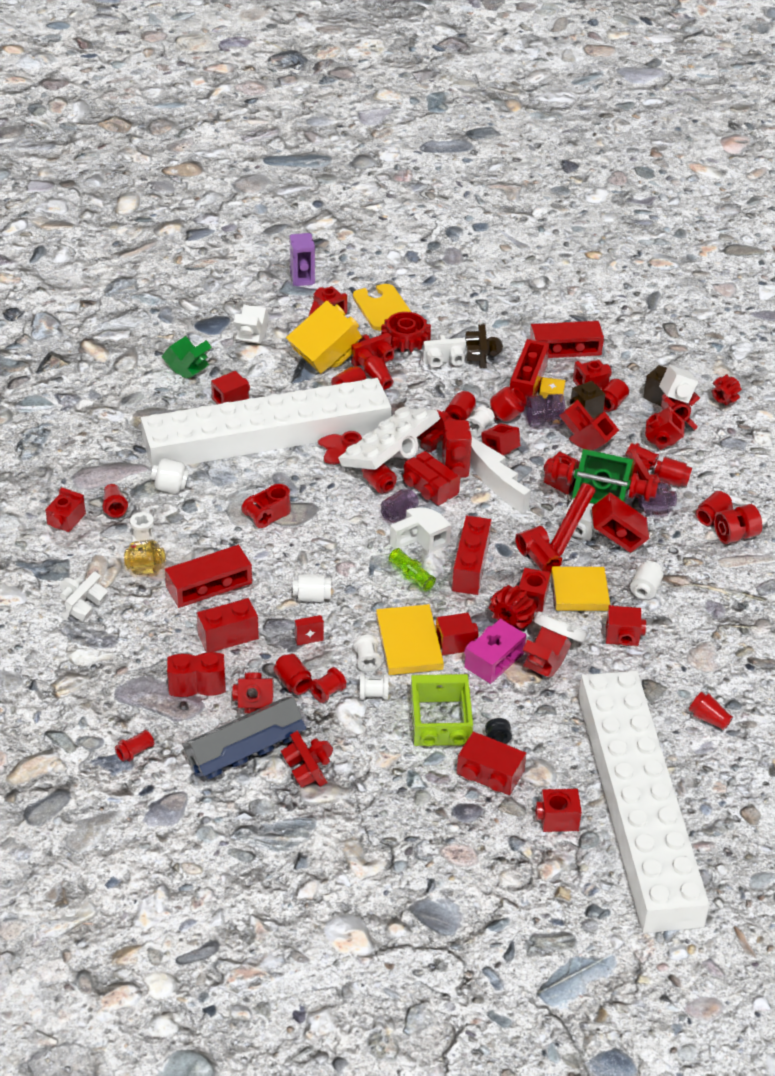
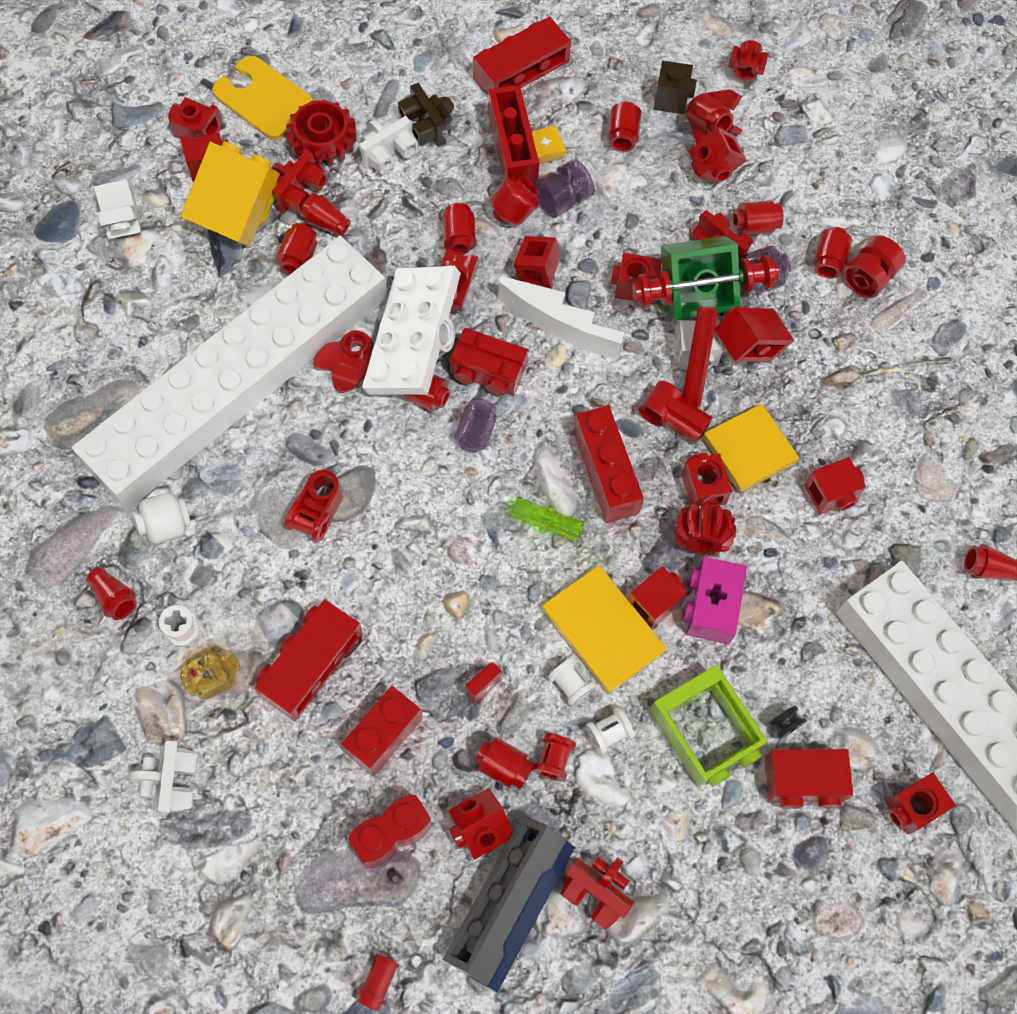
camera: 30 degrees left, 25 degrees up
(66, 510) = (66, 654): red brick -> none
(186, 358) = (65, 306): green brick -> none
(230, 388) = (157, 337): red brick -> none
(302, 259) = (122, 68): medium lavender brick -> none
(312, 588) = (448, 613): white brick -> none
(421, 525) = (525, 444): white brick -> none
(457, 446) = (501, 306): red brick -> none
(482, 418) = (493, 237): white bush -> none
(546, 652) = (777, 574): red brick -> none
(560, 626) = (773, 531): white tile -> none
(587, 431) = (633, 198): red brick -> none
(590, 397) = (603, 151): dark brown brick -> none
(592, 371) = (582, 105): red brick -> none
(644, 454) = (699, 204): red pin -> none
(647, 580) = (821, 402): white brick -> none
(678, 383) = (710, 87): white brick -> none

